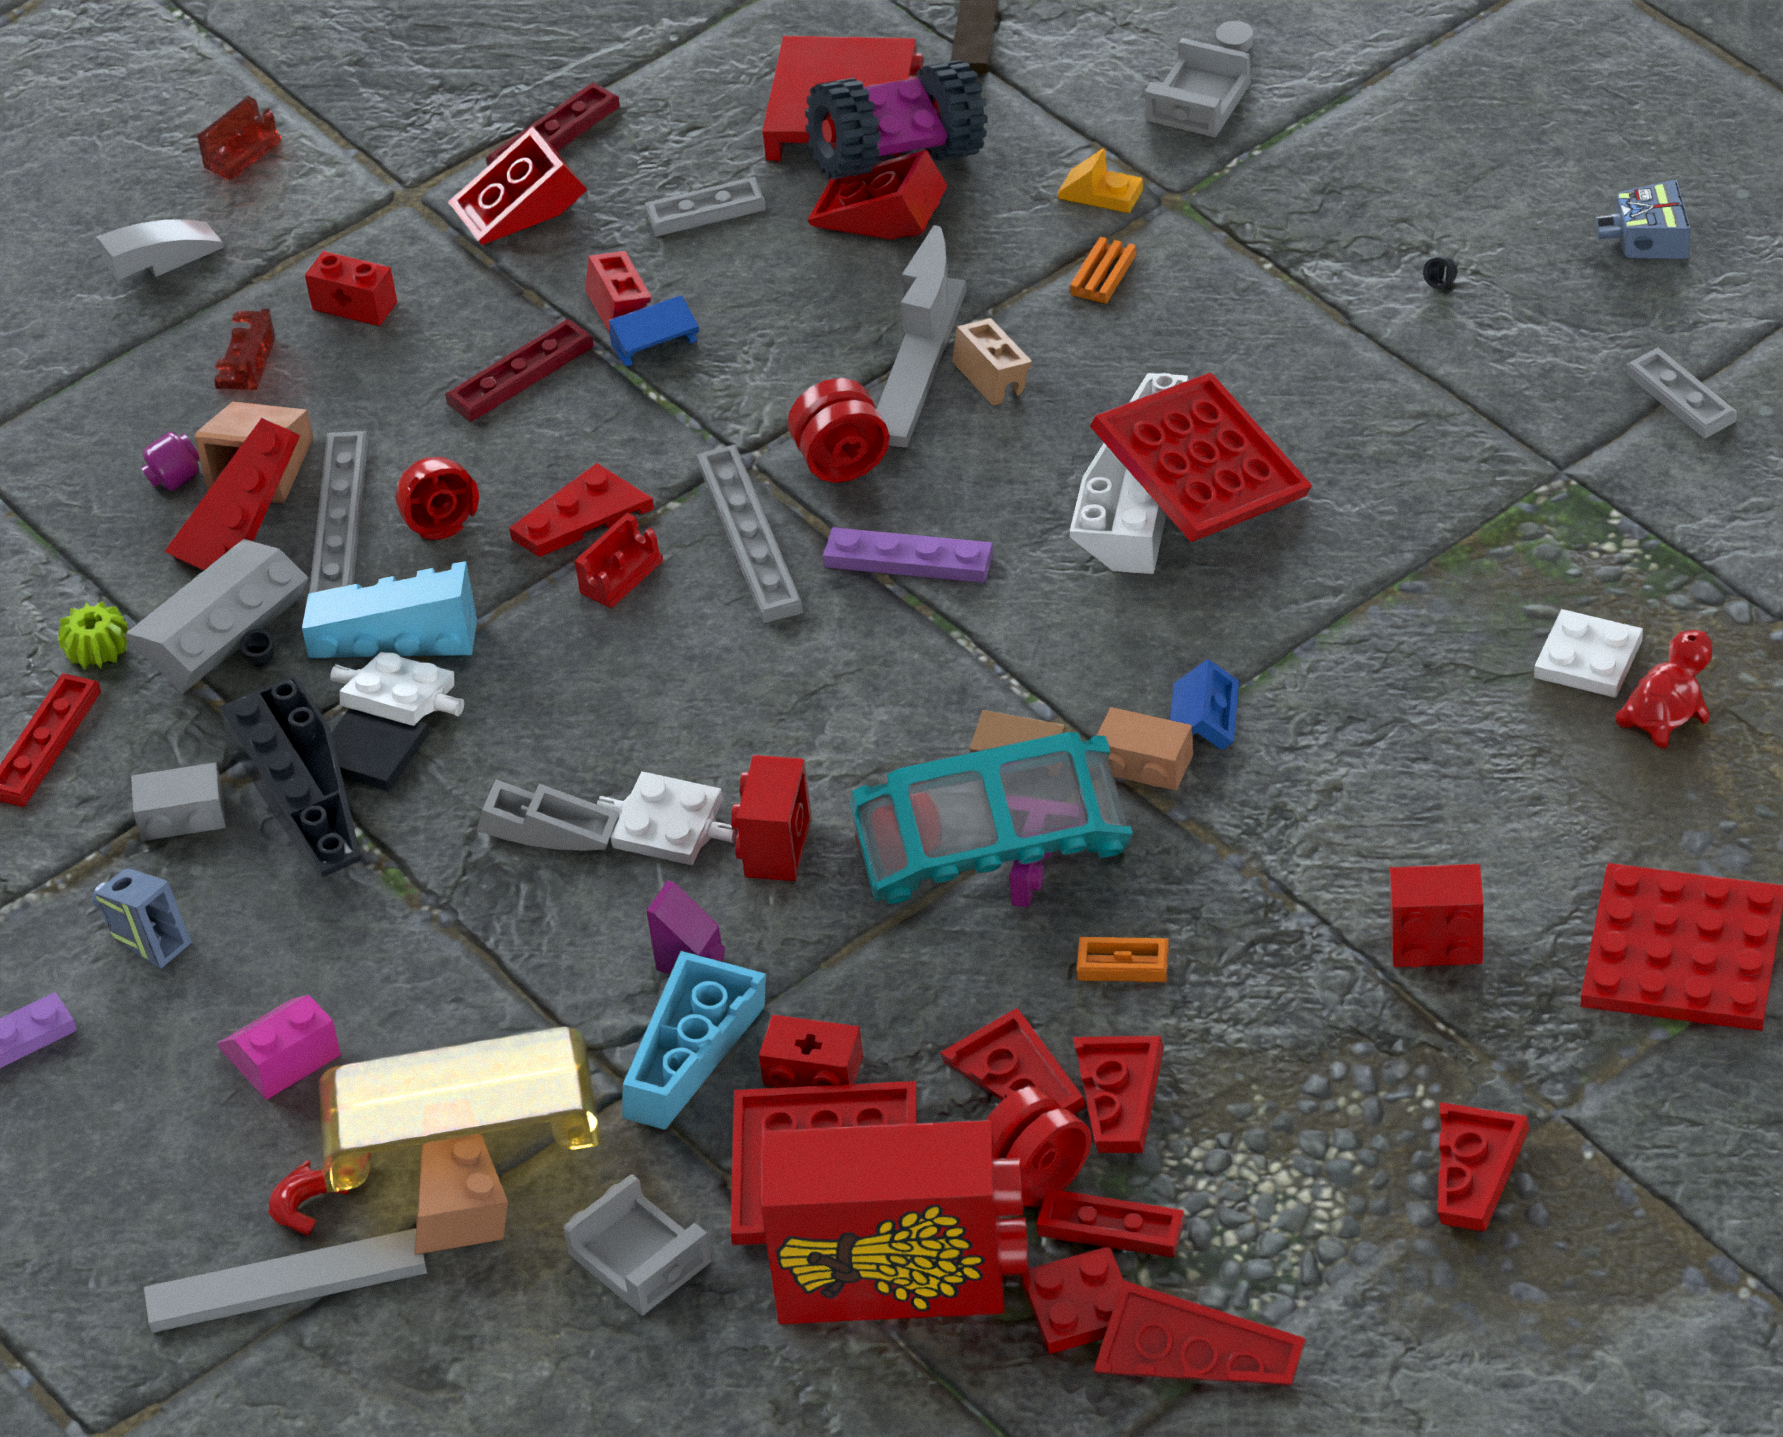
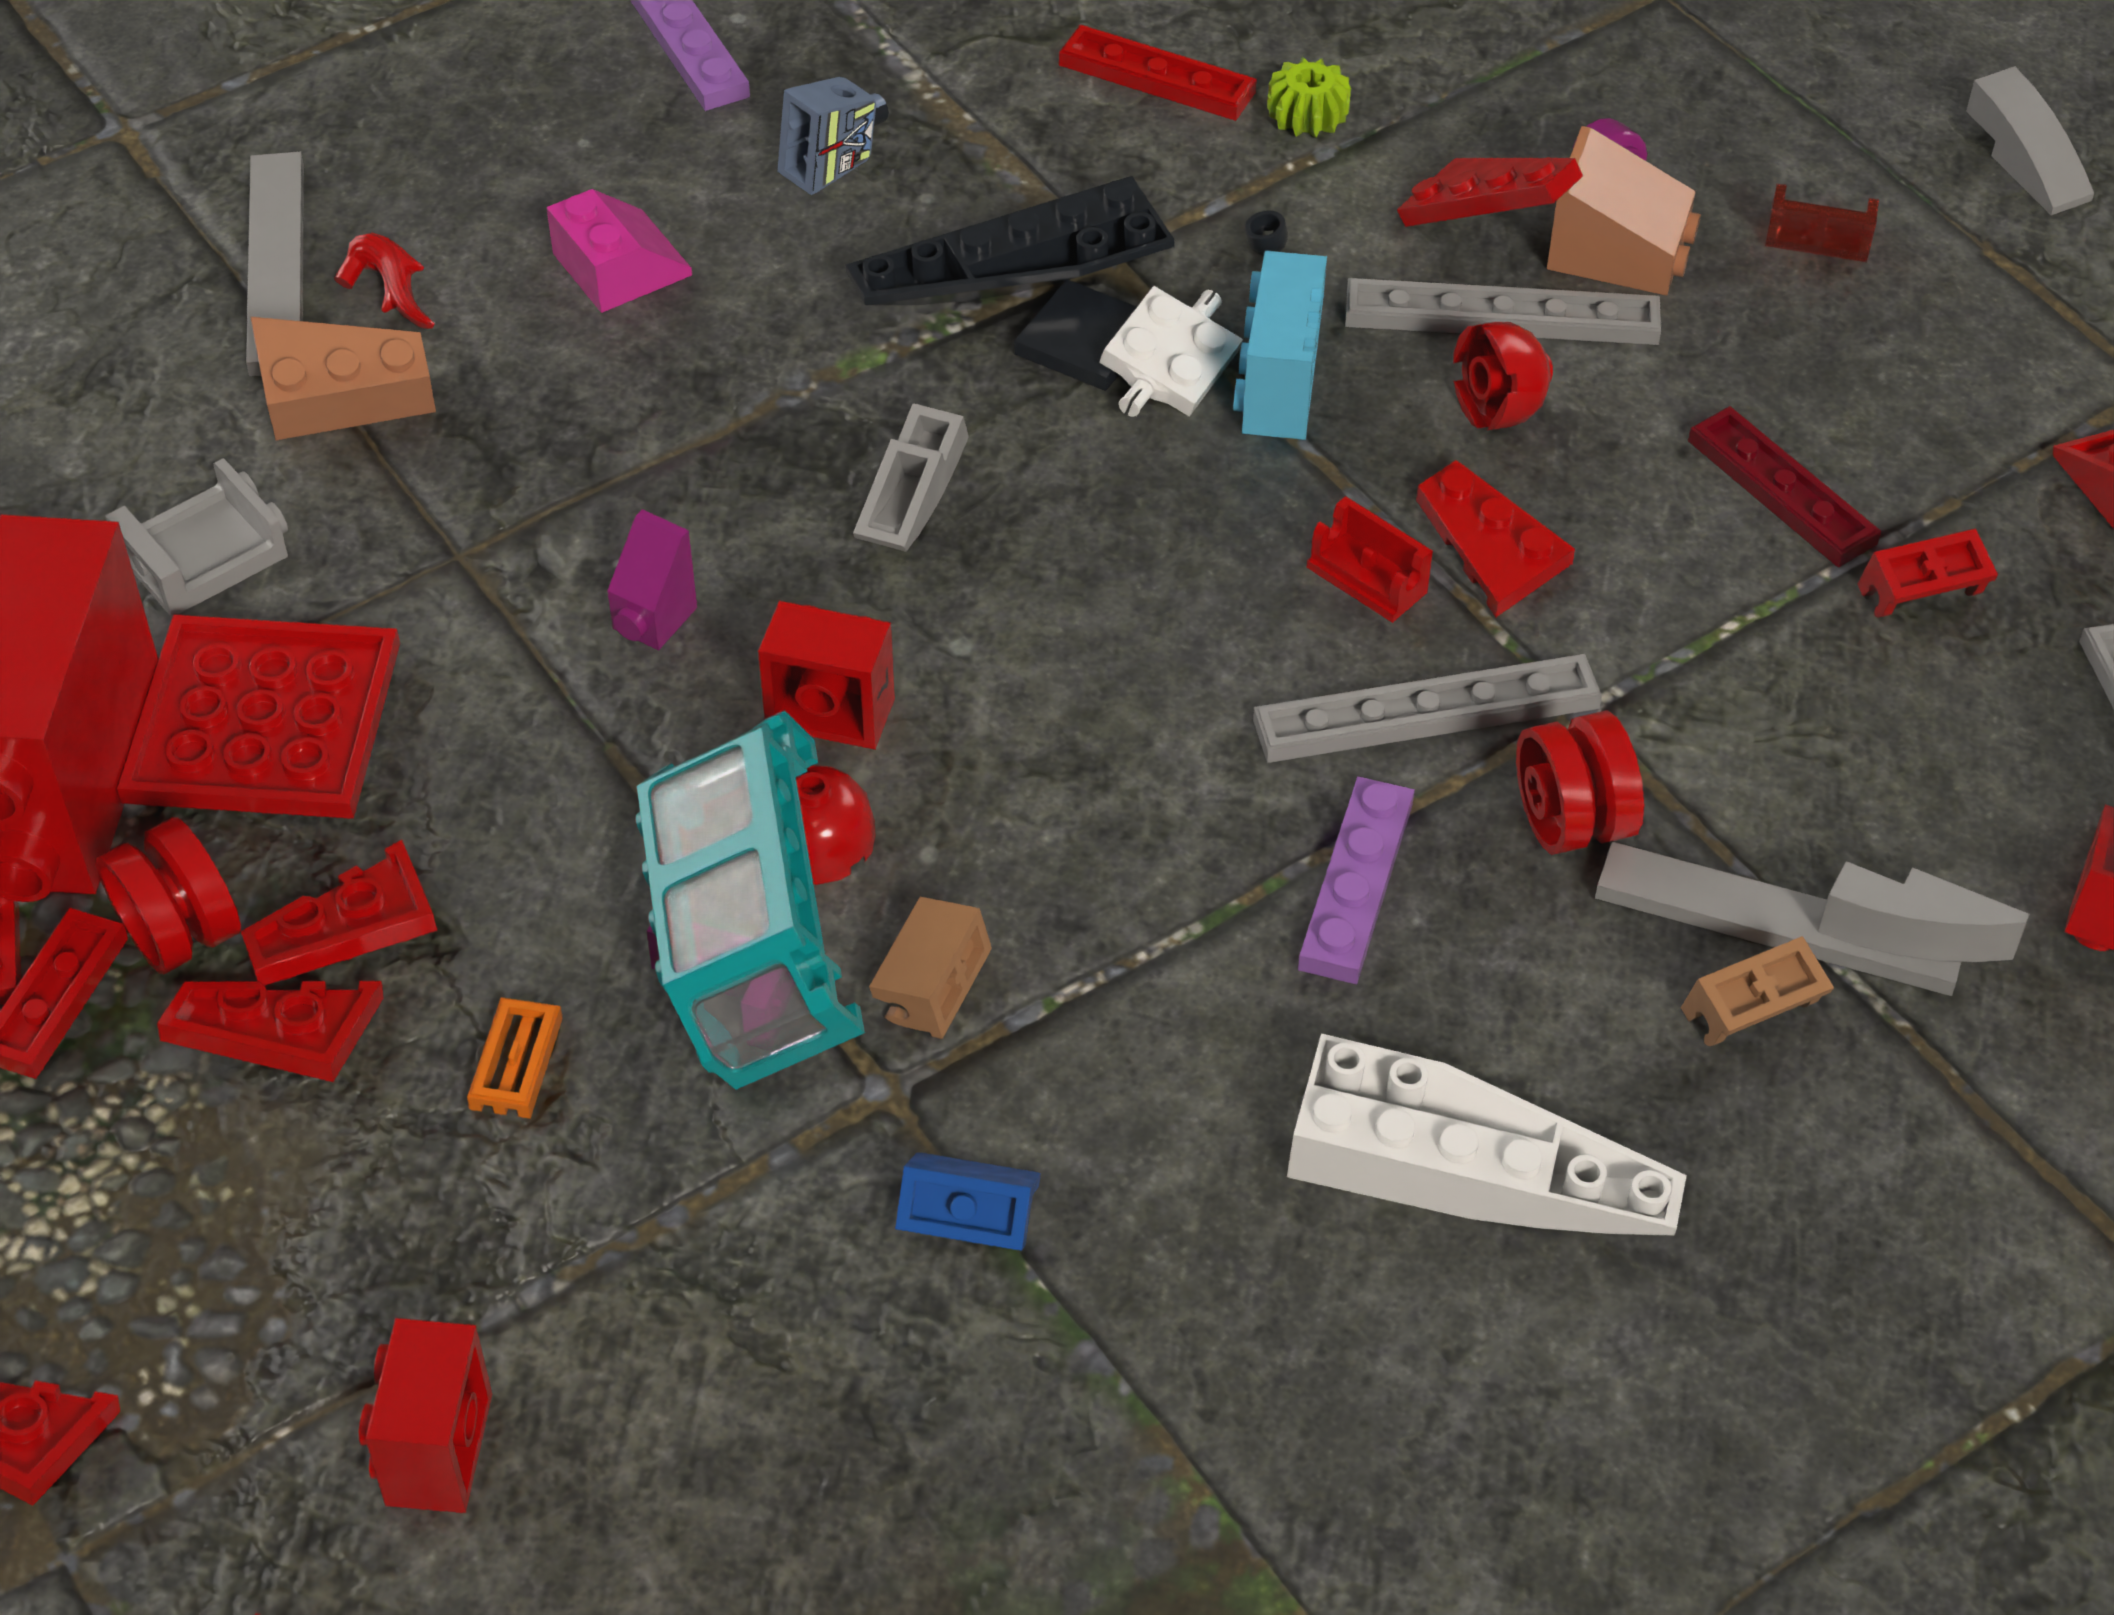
camera: 90 degrees right, 5 degrees up
(178, 801) = (1012, 163): light grey brick -> none
(215, 610) = (1318, 186): light grey slope -> none
(351, 288) = (1936, 311): red brick -> none
(455, 1096) = (432, 379): clear yellow windscreen -> none
(651, 327) = (1843, 612): blue hinge -> none
(668, 818) = (902, 588): white plate -> none
(690, 1033) = (491, 582): medium azure wedge -> none
(810, 1053) = (432, 707): red brick -> none
(1109, 252) = (1993, 1164): orange tile -> none
(1147, 748) = (890, 1107): nougat brick -> none
(1200, 456) = (1463, 1214): red plate -> none

